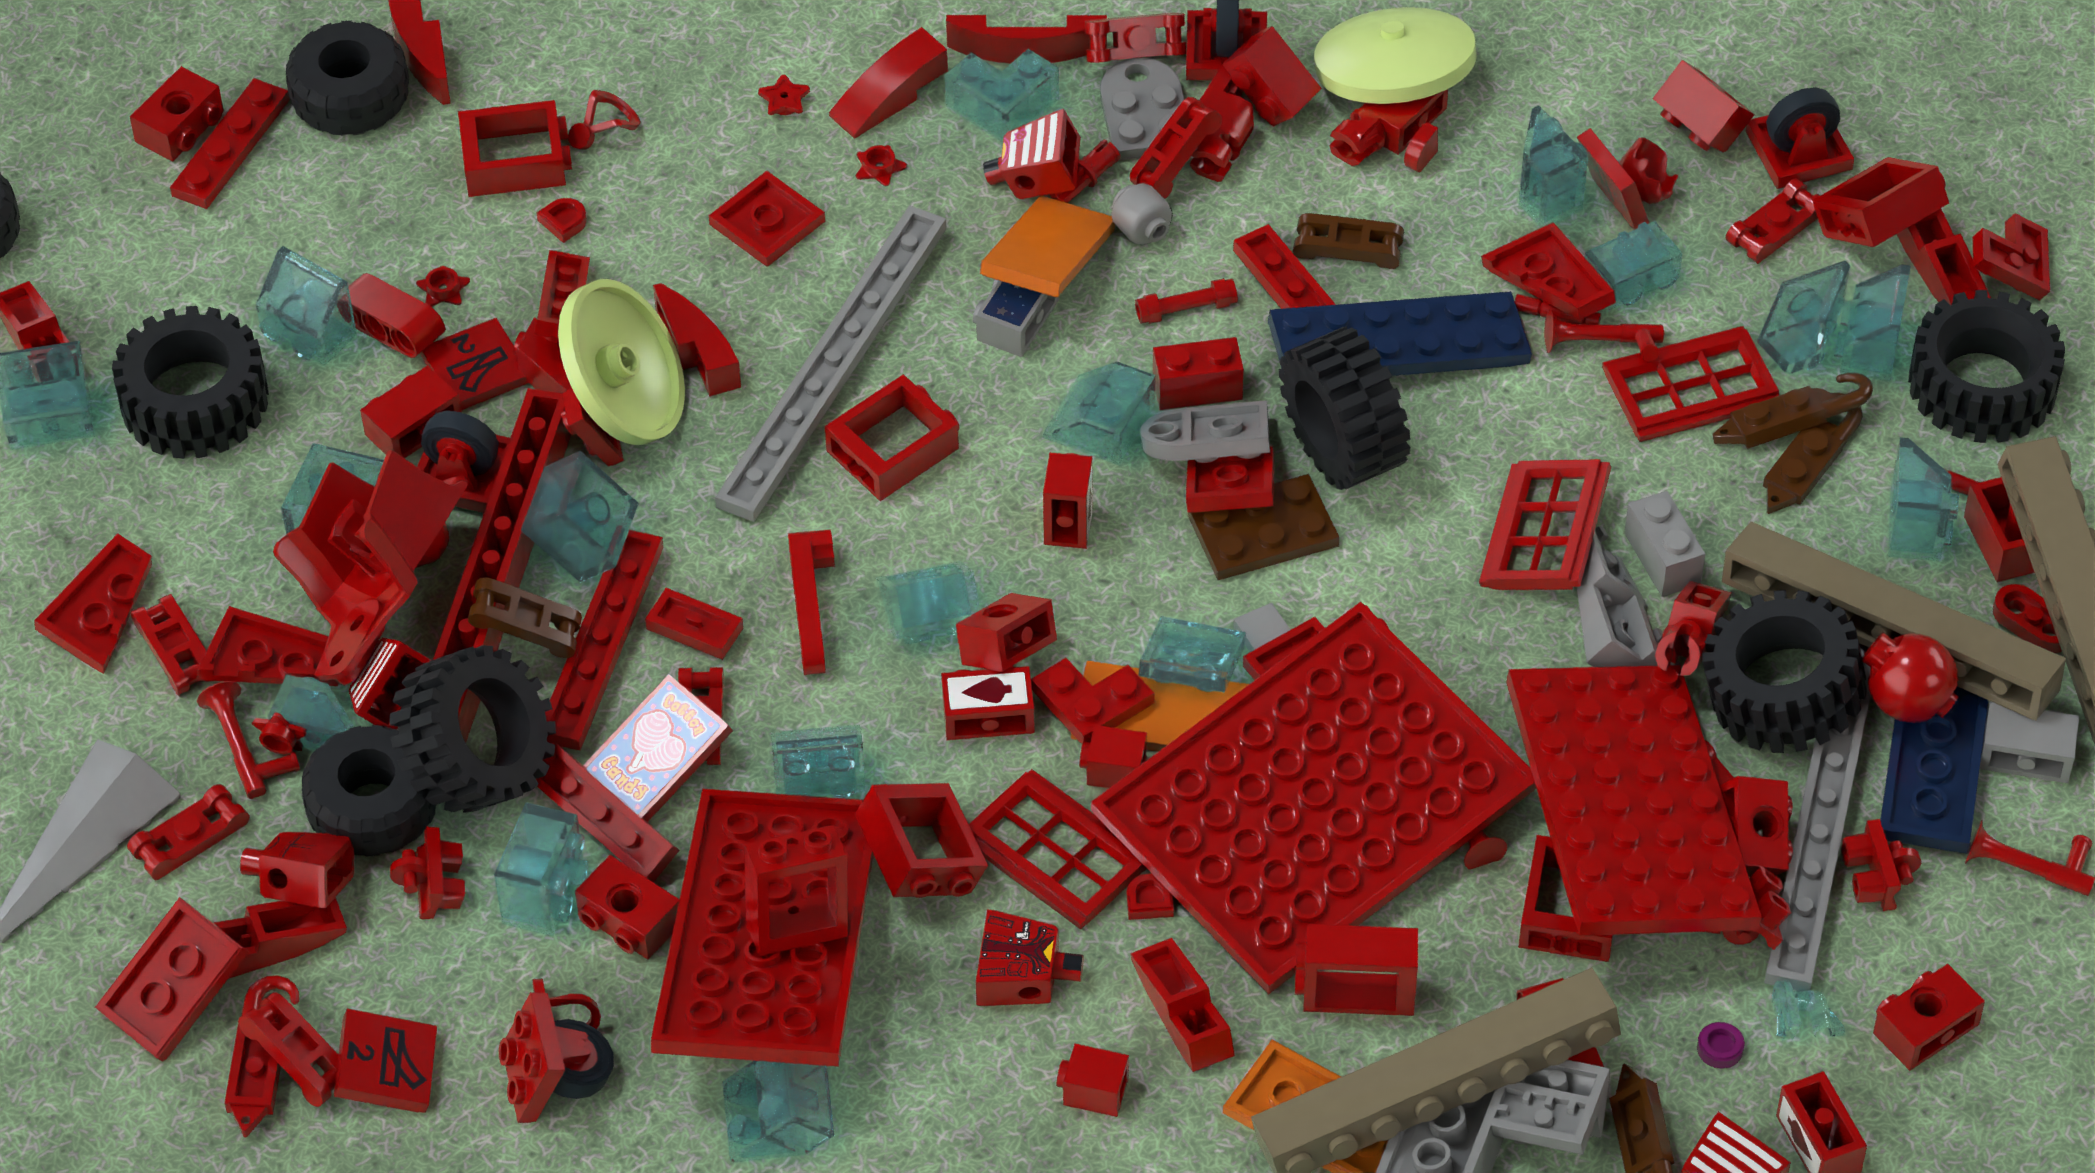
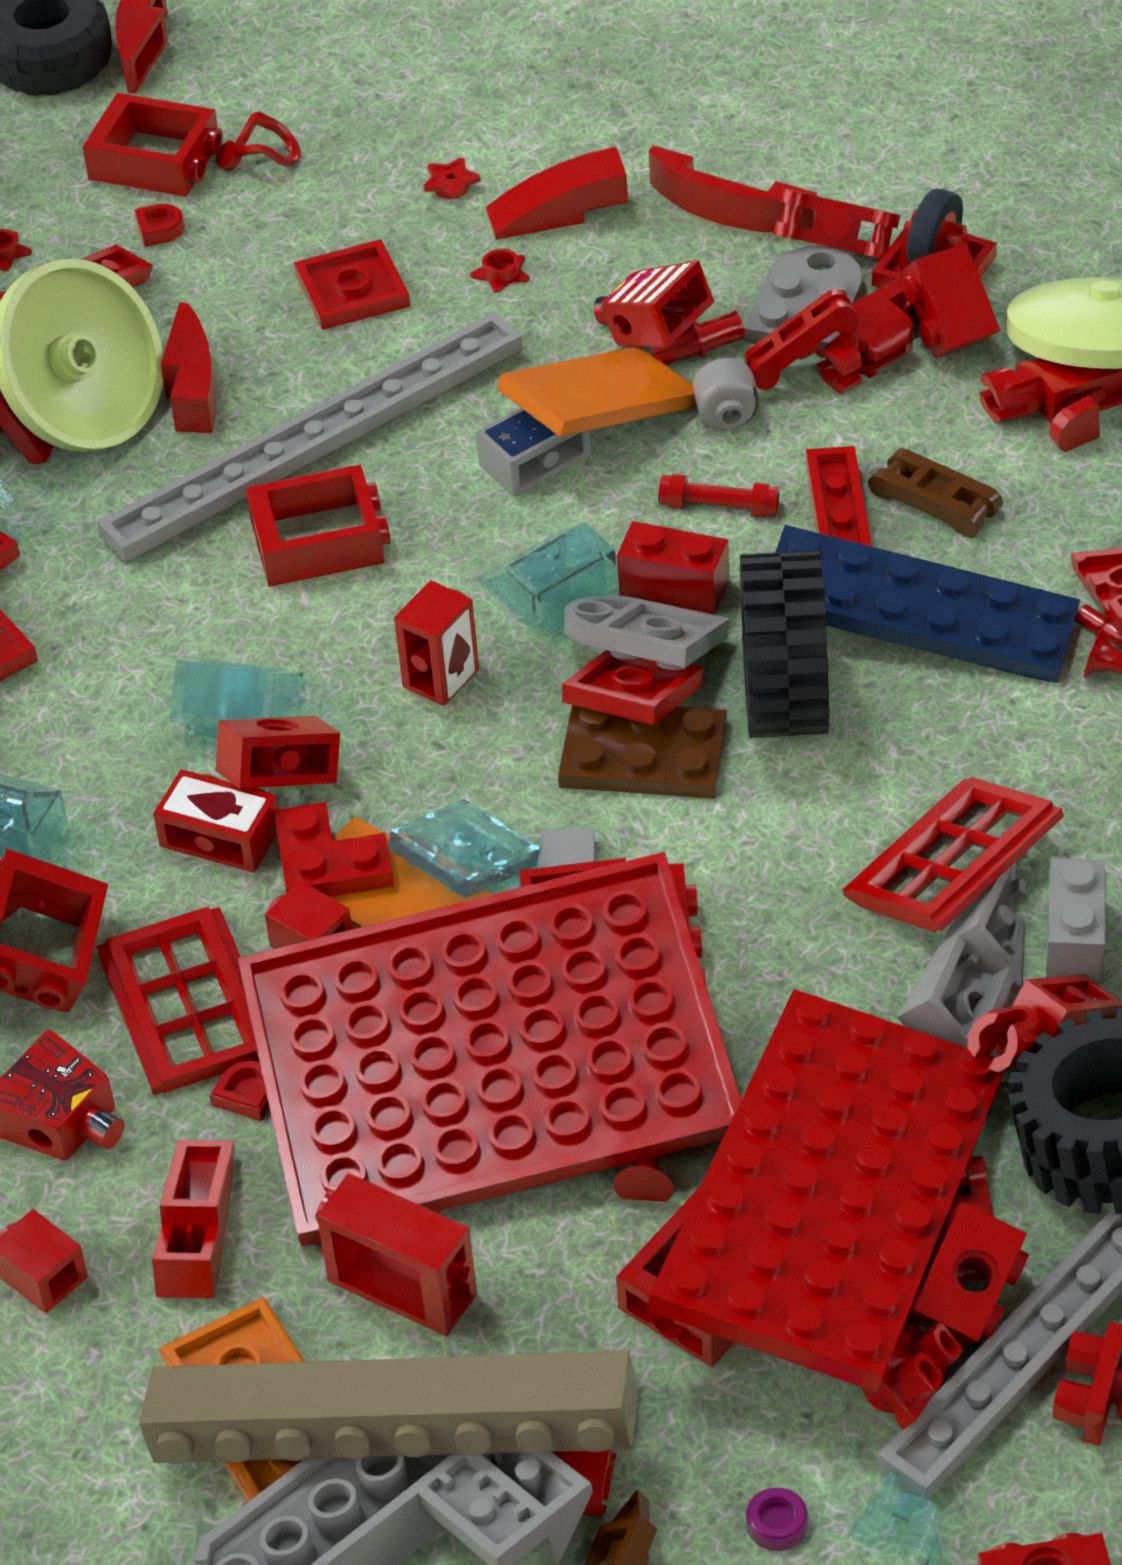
camera: 30 degrees right, 5 degrees down
(809, 552) = (108, 660): red beam -> none
(1005, 98) = (658, 237): clear light blue brick -> none

